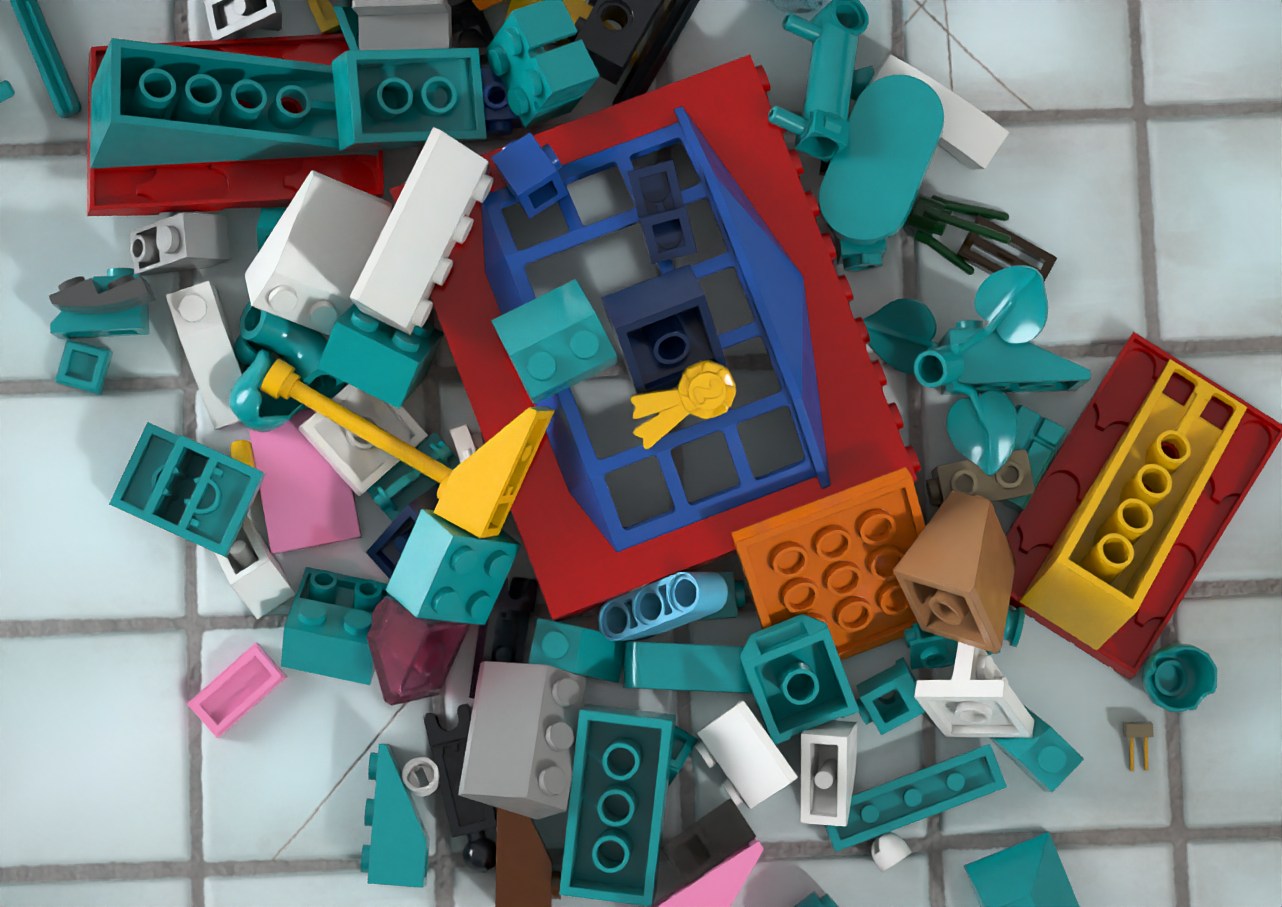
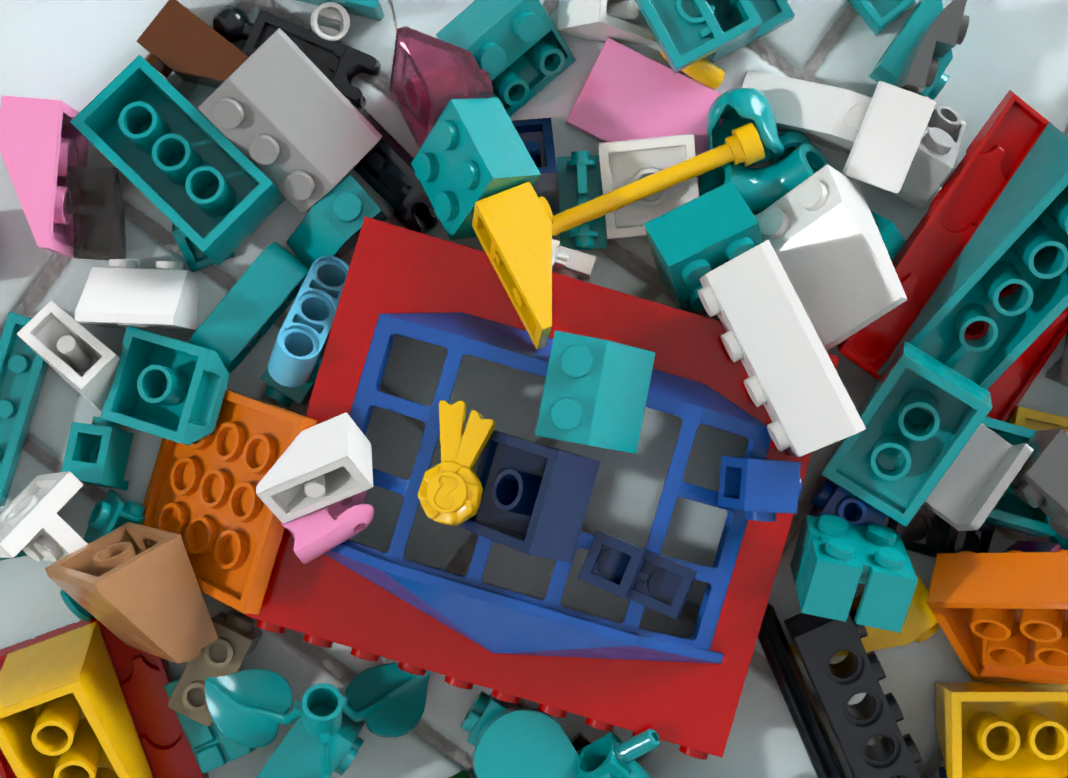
camera: 130 degrees right, 5 degrees up
(195, 276) = (889, 137): none -> white slope
(764, 500) = (318, 469): none -> white slope
(801, 465) = (329, 526): none -> bright pink piece

